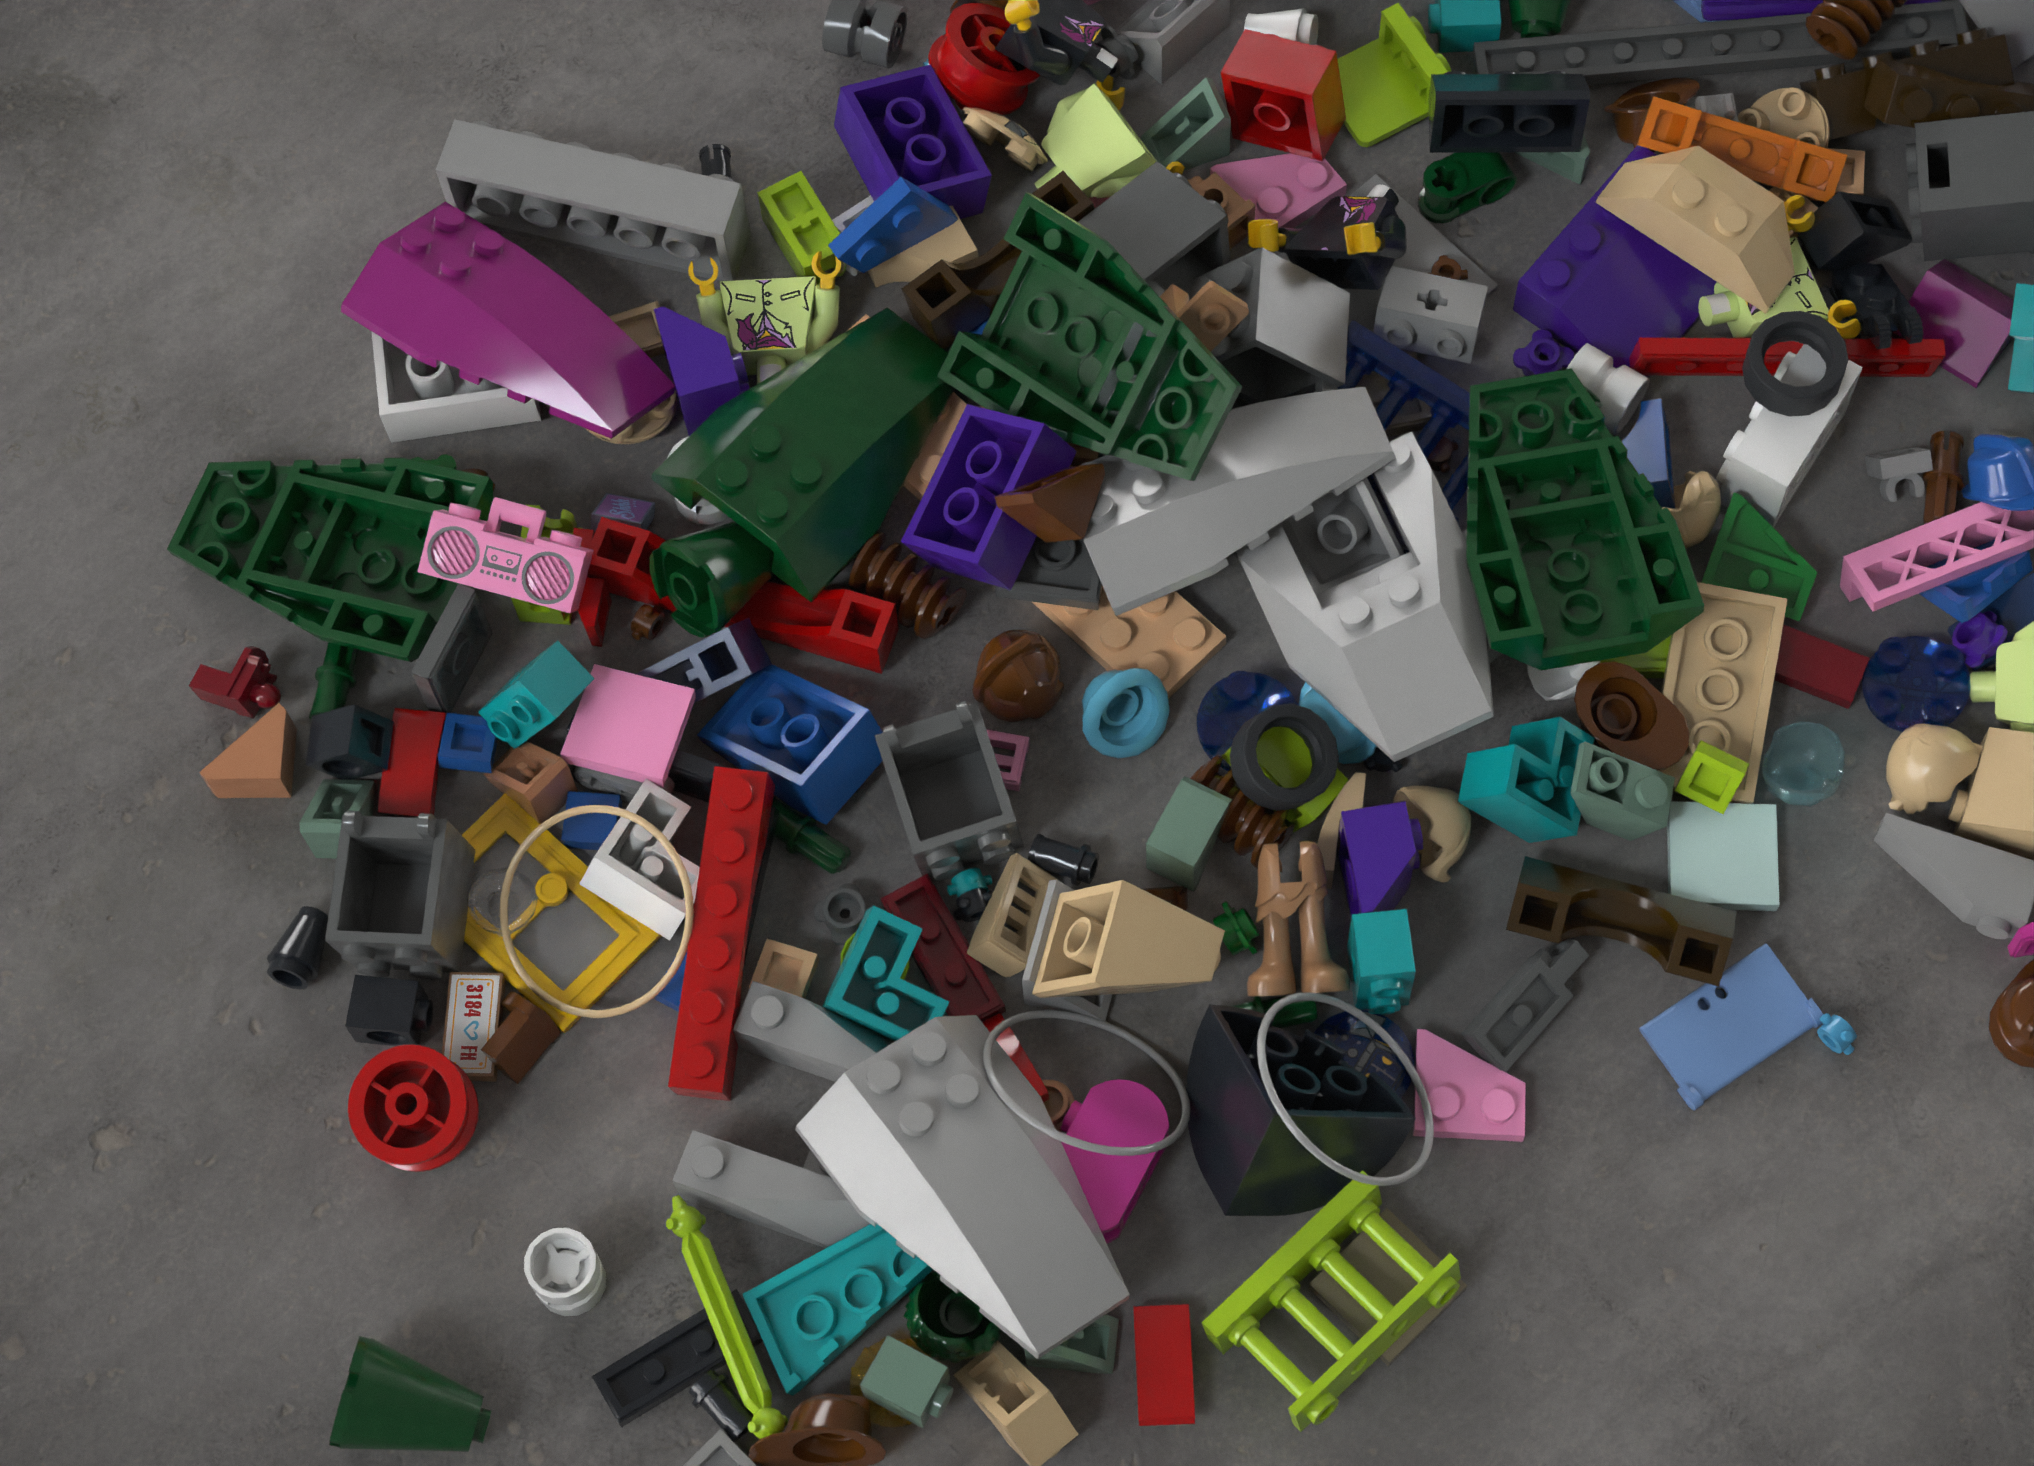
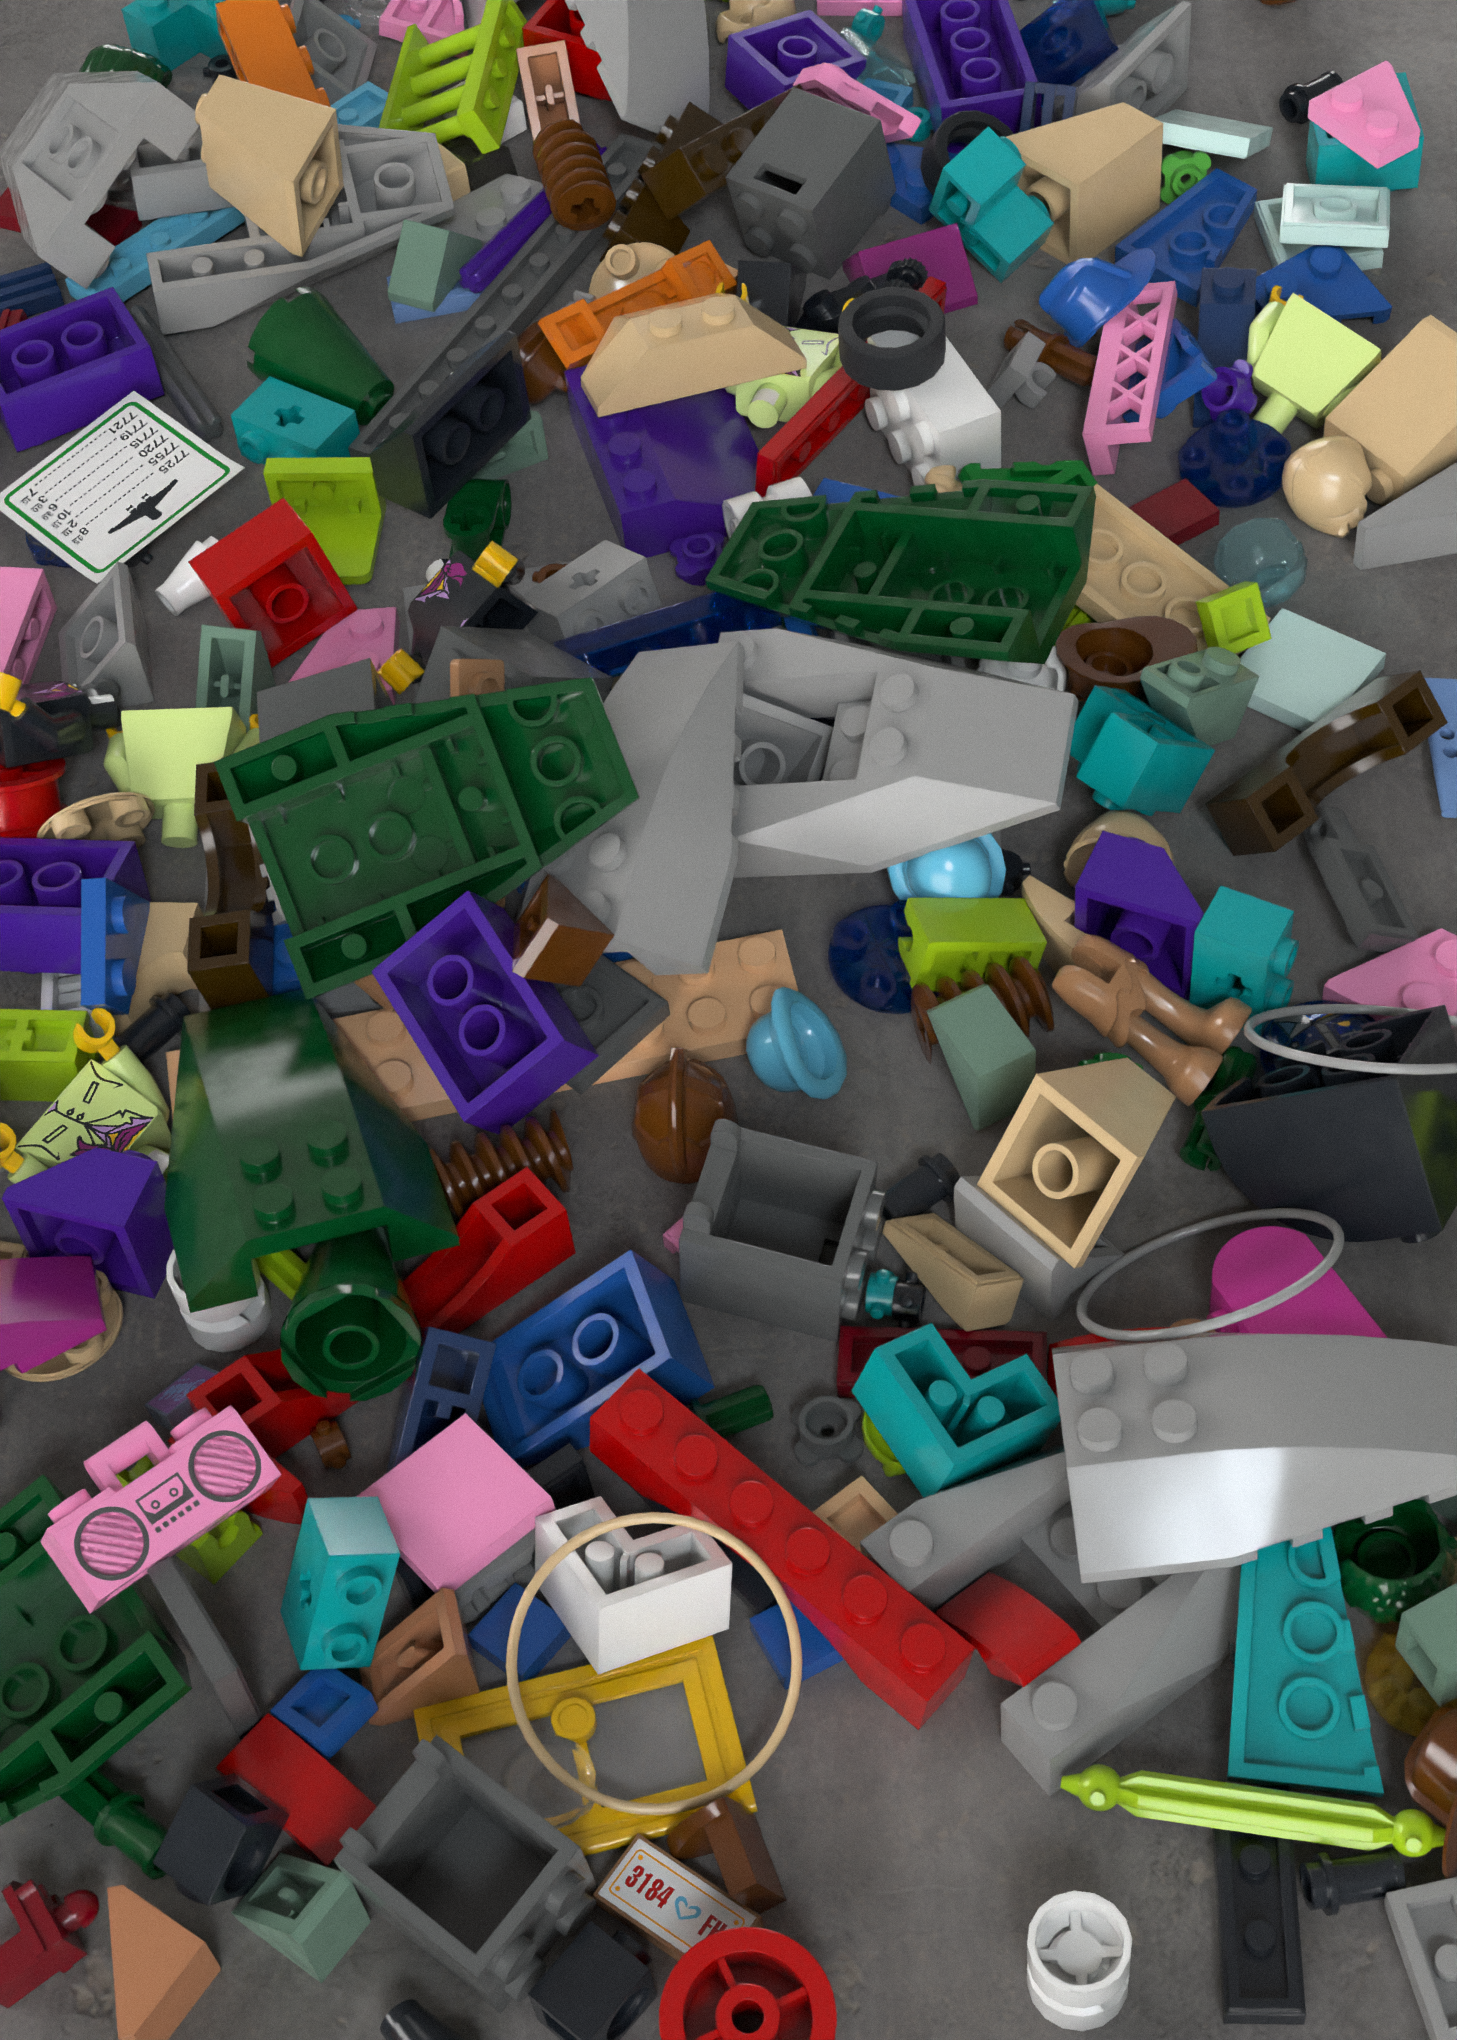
camera: 55 degrees left, 15 degrees down
(758, 1104) = (1009, 1628): none -> red slope
(876, 292) = (154, 1026): none -> black pin
(1315, 735) = (961, 938): black tyre -> none

